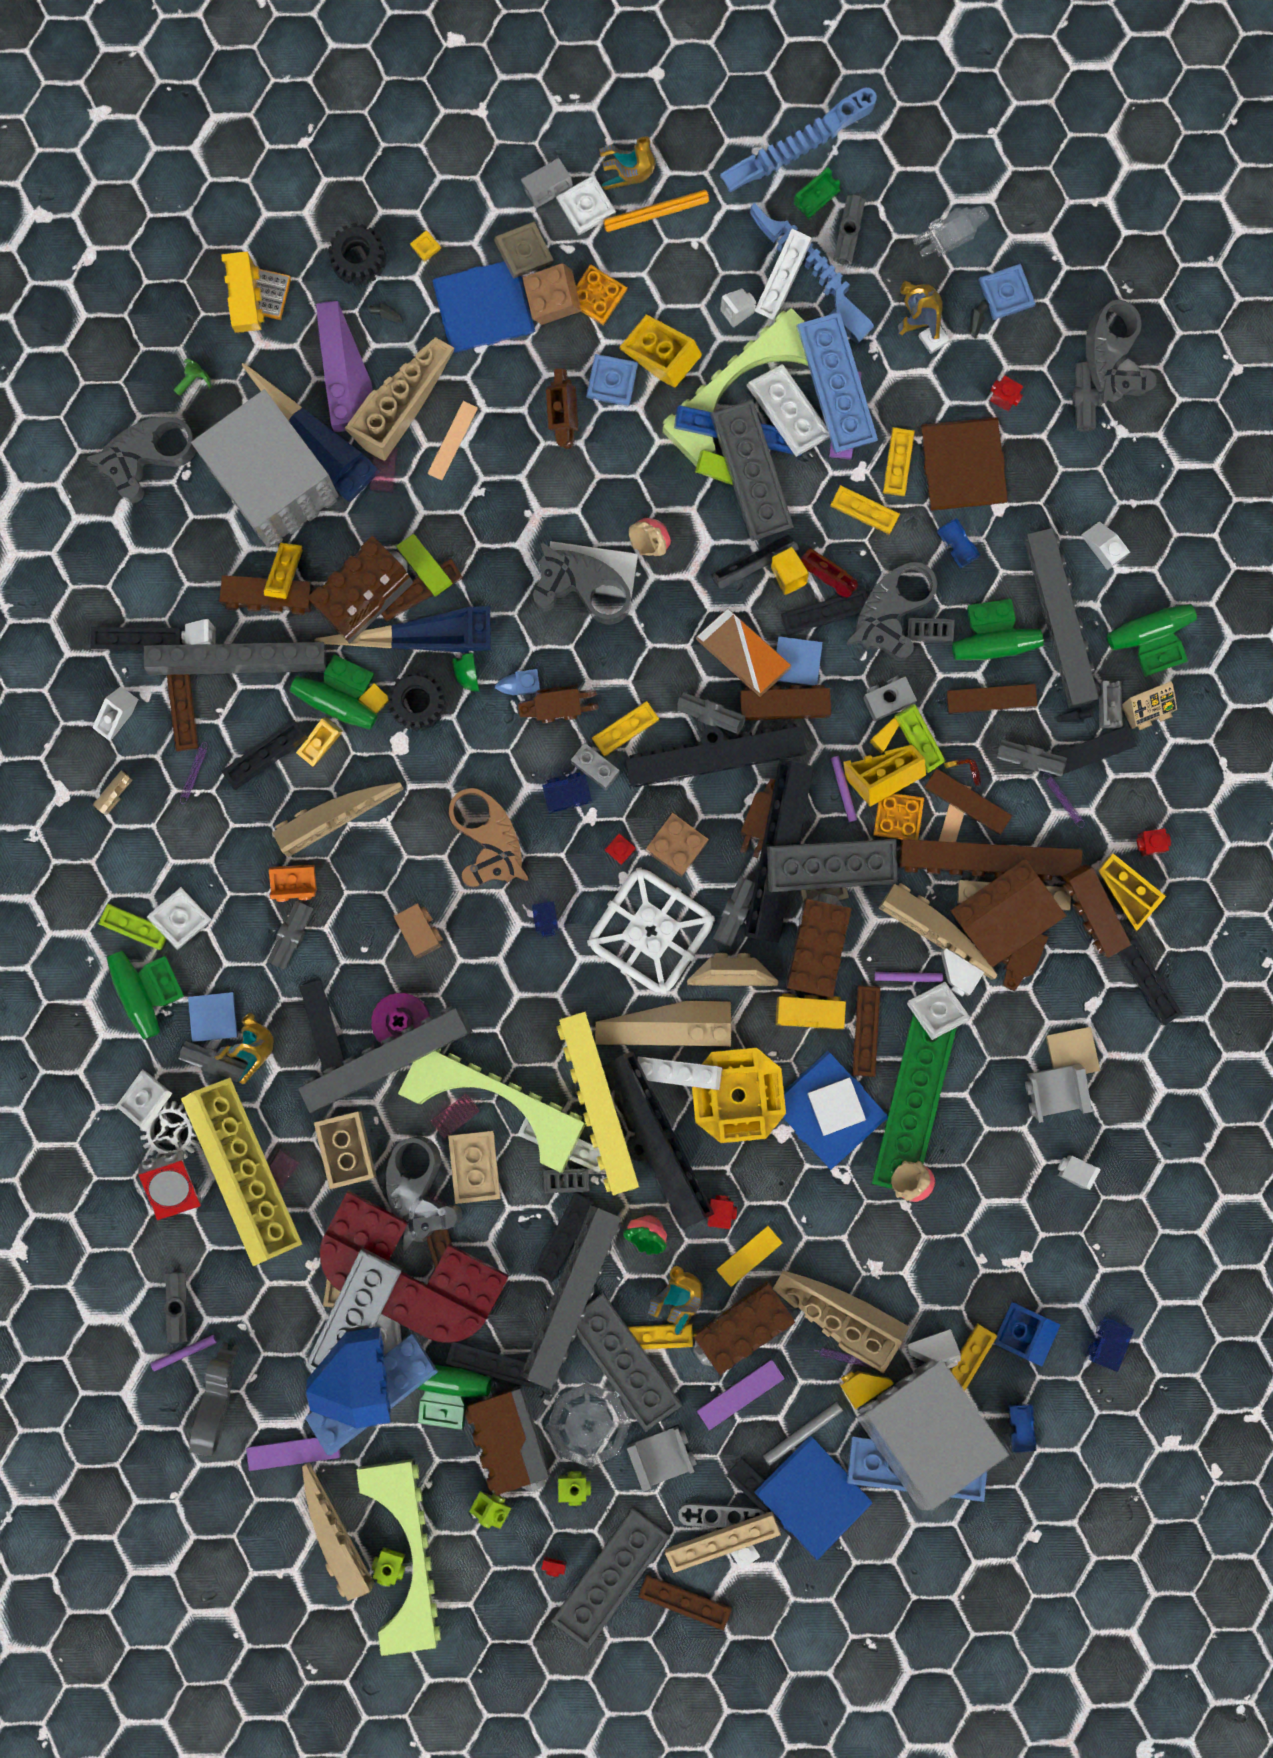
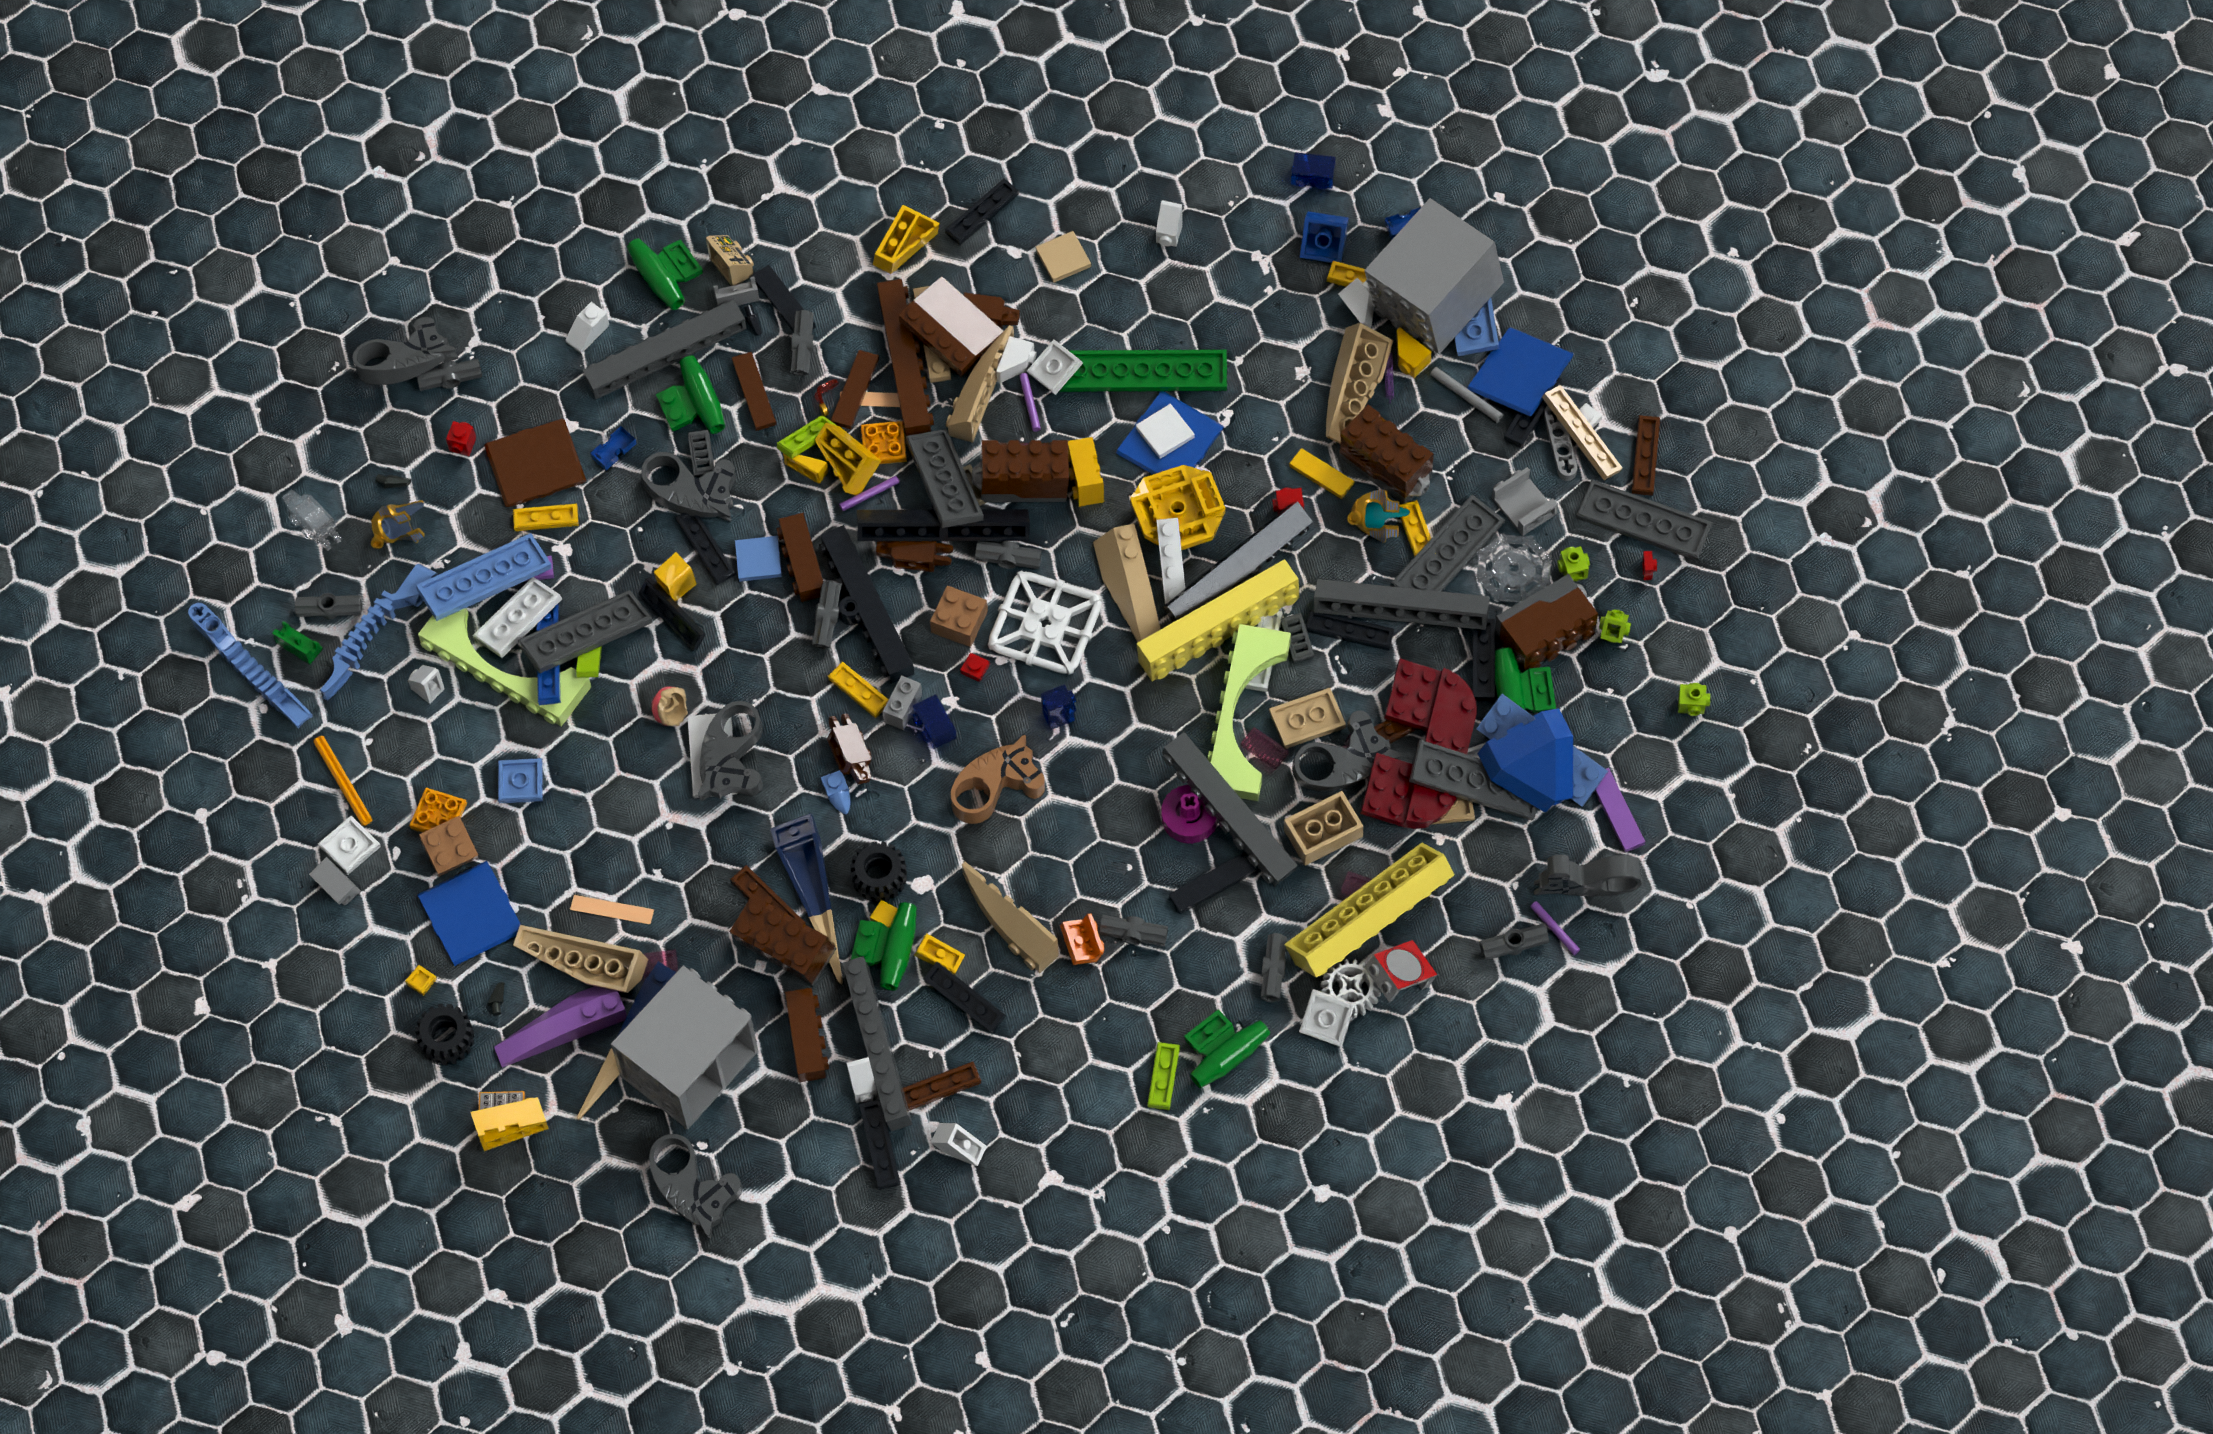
camera: 100 degrees left, 20 degrees down
(110, 795) = (1036, 1123): tan slope -> none
(179, 918) = (1144, 1034): white tile -> none
(193, 371) = (597, 1156): bright green plant -> none
(197, 769) = (997, 1061): medium lavender piece -> none
(213, 1017) = (1231, 982): medium blue tile -> none
(255, 1047) = (1249, 933): pearl gold piece -> none
(283, 570) = (781, 1019): yellow tile -> none
(334, 1540) = (1697, 740): tan wedge -> none
(396, 1489) = (1731, 667): yellowish green arch -> none
(418, 931) = (1099, 813): medium nougat brick -> none
(424, 565) = (754, 883): lime tile -> none
(465, 672) = (838, 838): green brick -> none
(523, 250) = (408, 885): dark tan plate -> none
(562, 409) = (560, 811): reddish brown hinge -> none
(631, 165) = (302, 805): pearl gold piece -> none
(647, 1234) = (1327, 556): green hair -> none
(661, 350) = (482, 741): yellow slope -> none
(732, 972) = (1065, 544): tan wedge -> none
(740, 1394) = (1448, 452): medium lavender tile -> none
(743, 652) = (761, 600): tile -> none
(783, 274) = (385, 647): white plate -> none
(829, 573) = (668, 545): dark red hinge -> none
(864, 510) = (598, 535): yellow tile -> none
(866, 1031) = (1089, 425): reddish brown tile -> none
(879, 707) = (770, 461): light grey brick -> none
(913, 1181) = (1215, 348): tan hair -> none
(933, 344) = (421, 516): white plate -> none
(1006, 291) = (360, 463): medium blue tile -> none
(1050, 780) = (834, 315): medium lavender piece -> none
(1058, 1091) = (1099, 256): light grey panel -> none
(1096, 911) = (929, 259): reddish brown brick -> none
(1153, 842) = (854, 231): red brick -> none

